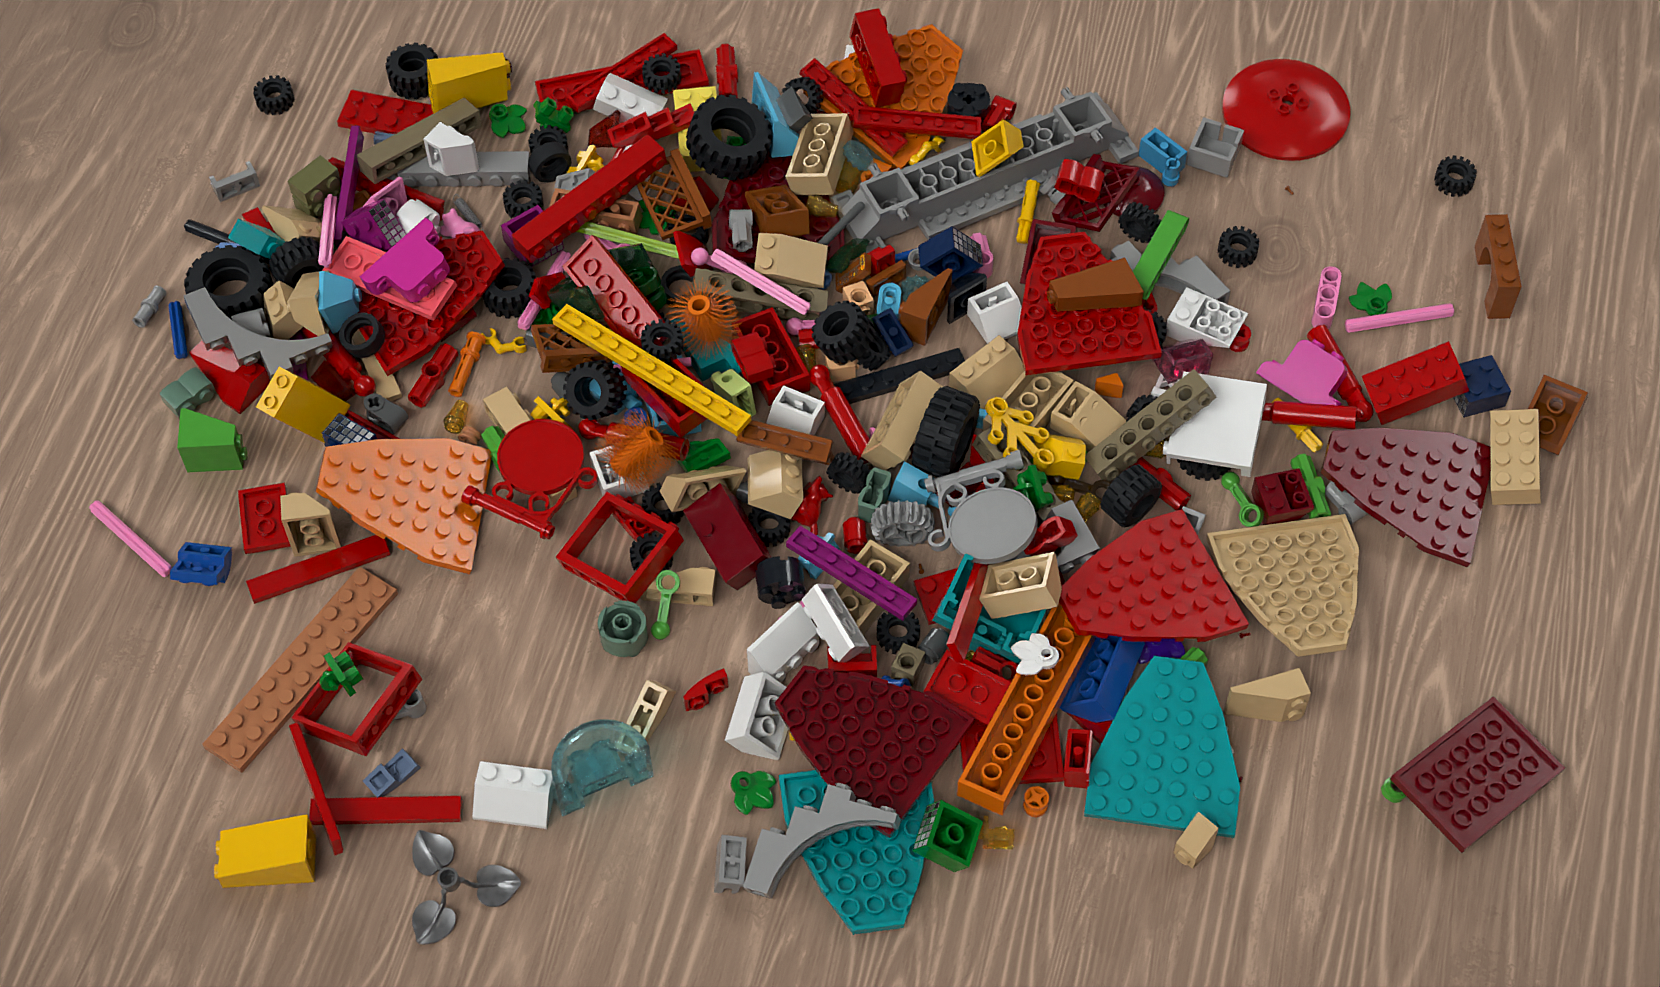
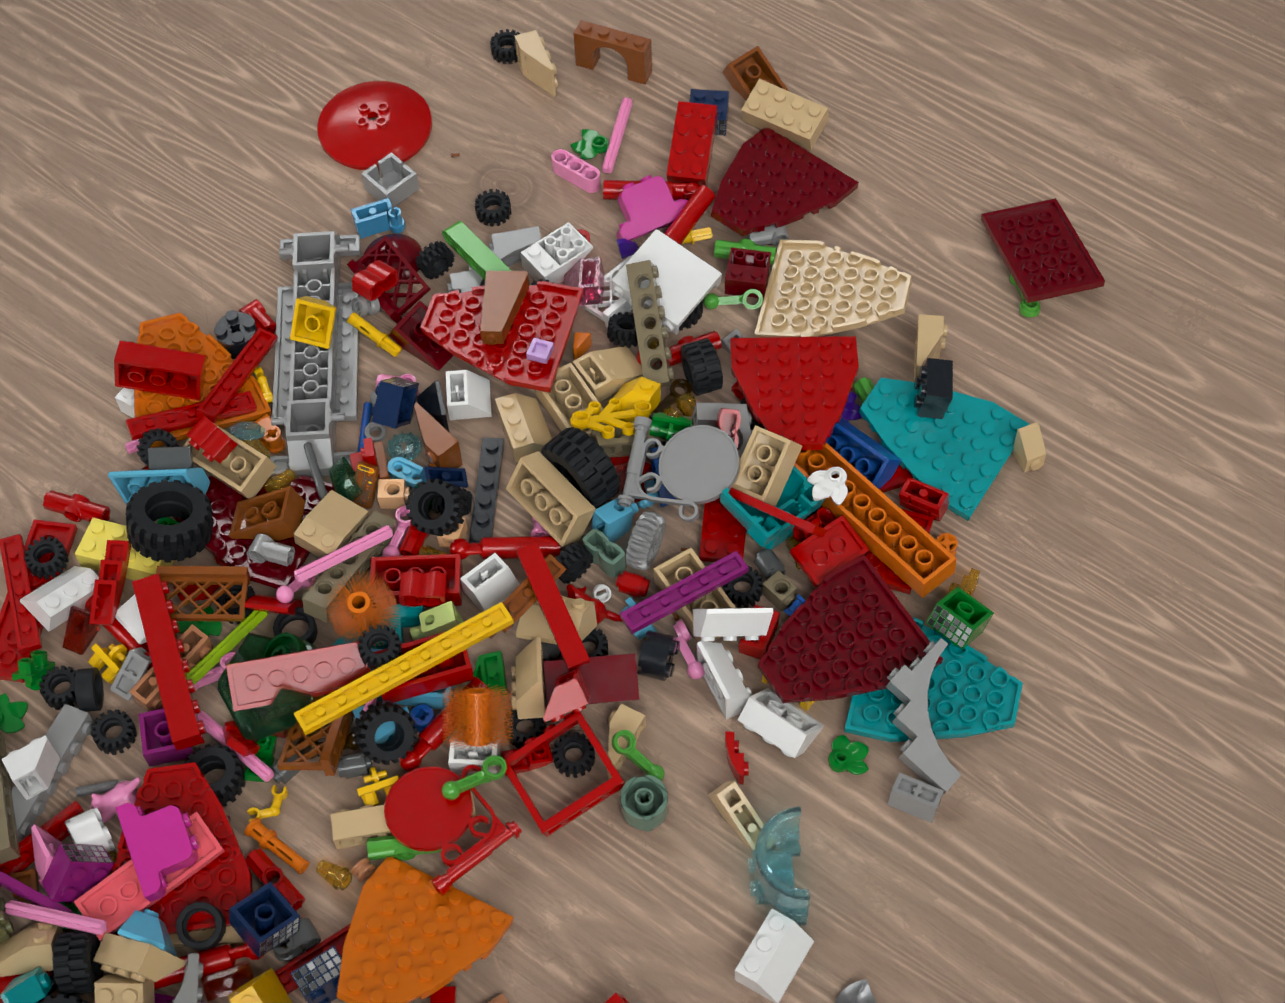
camera: 65 degrees left, 0 degrees up
(381, 375) = (264, 919): none -> dark blue brick
(560, 464) = (452, 789): none -> bright green piece
(688, 512) = (567, 695): none -> slope
(775, 464) = (553, 606): none -> red tile
(822, 127) = (211, 440): none -> red brick
(832, 516) = (603, 596): none -> white hinge
(1060, 342) = (540, 350): none -> lavender plate
(1204, 711) = (934, 388): none -> black brick
(1249, 374) = (626, 247): none -> dark purple tile
(1447, 204) = (535, 61): none -> tan slope

